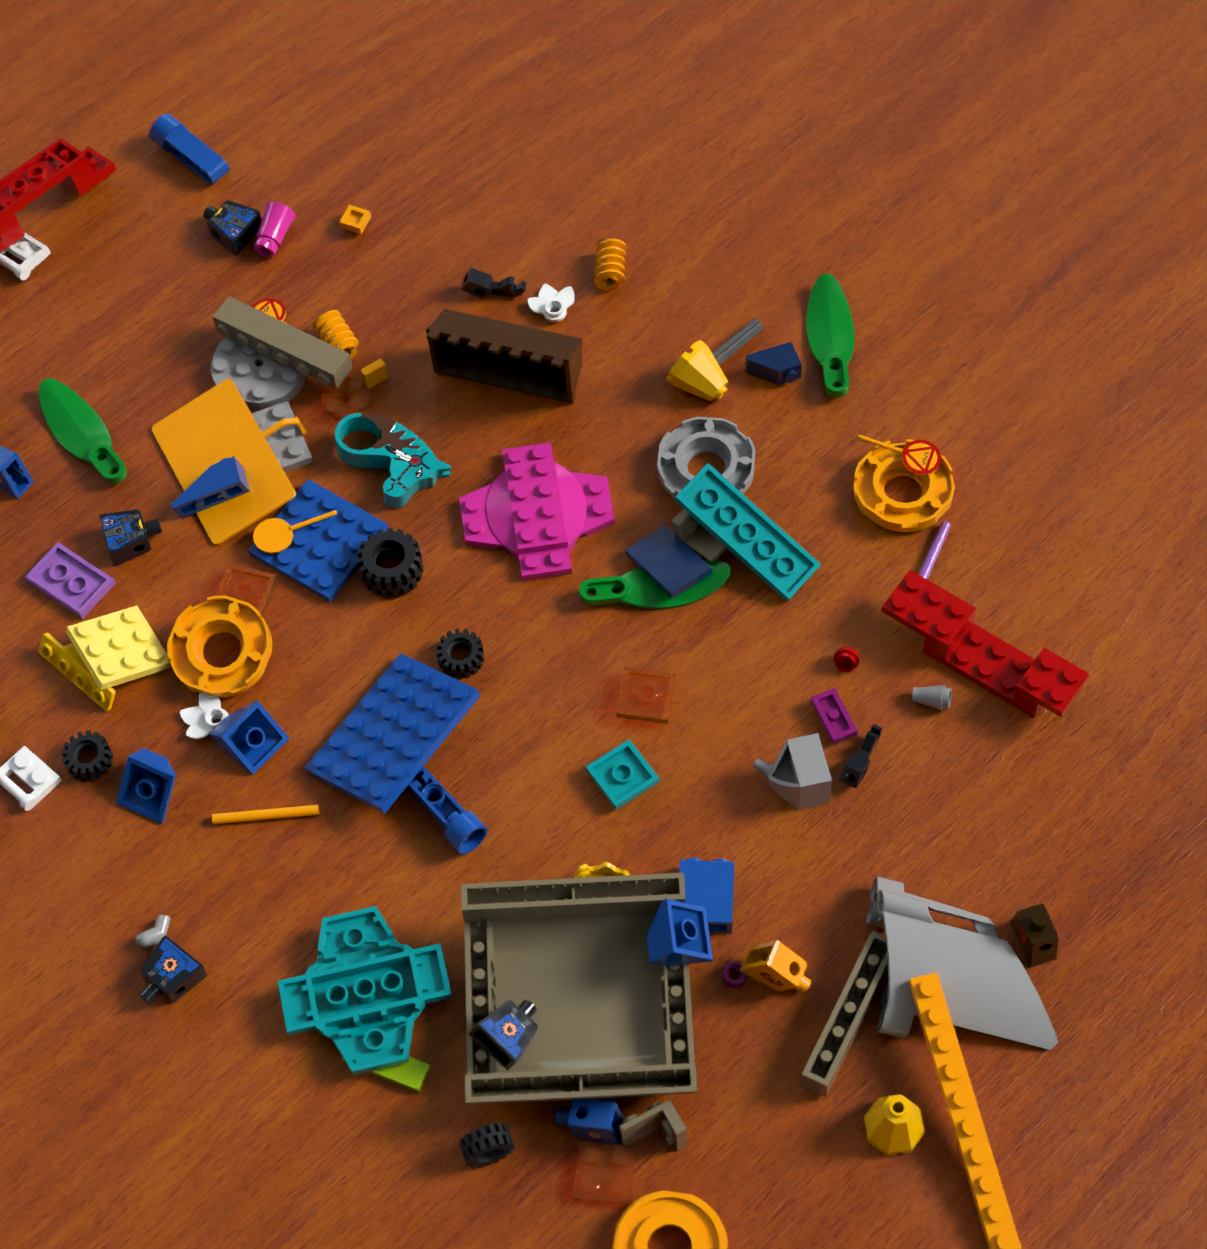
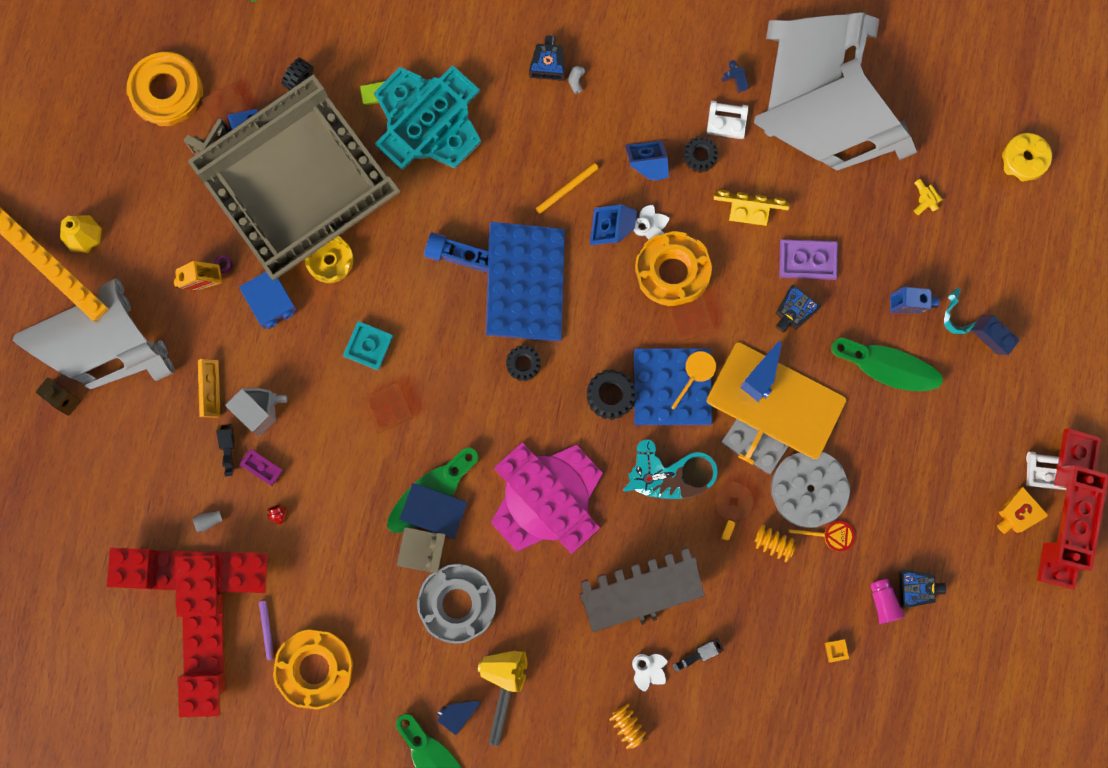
camera: 145 degrees right, 20 degrees up
(78, 233) = (1020, 512): none -> light orange torso
(118, 647) = (736, 229): light yellow plate -> none
(188, 149) = (1023, 635): blue beam -> none
(282, 342) = (802, 506): dark tan brick -> none
(506, 1032) = (322, 134): torso -> none
(679, 935) = (254, 247): blue slope -> none
(747, 532) = (391, 558): teal plate -> none
(842, 836) = (209, 388): none -> light orange plate
(847, 1016) = (139, 275): dark tan brick -> none
(917, 456) = (312, 693): piece -> none
(1005, 585) = (202, 636): none -> red bracket

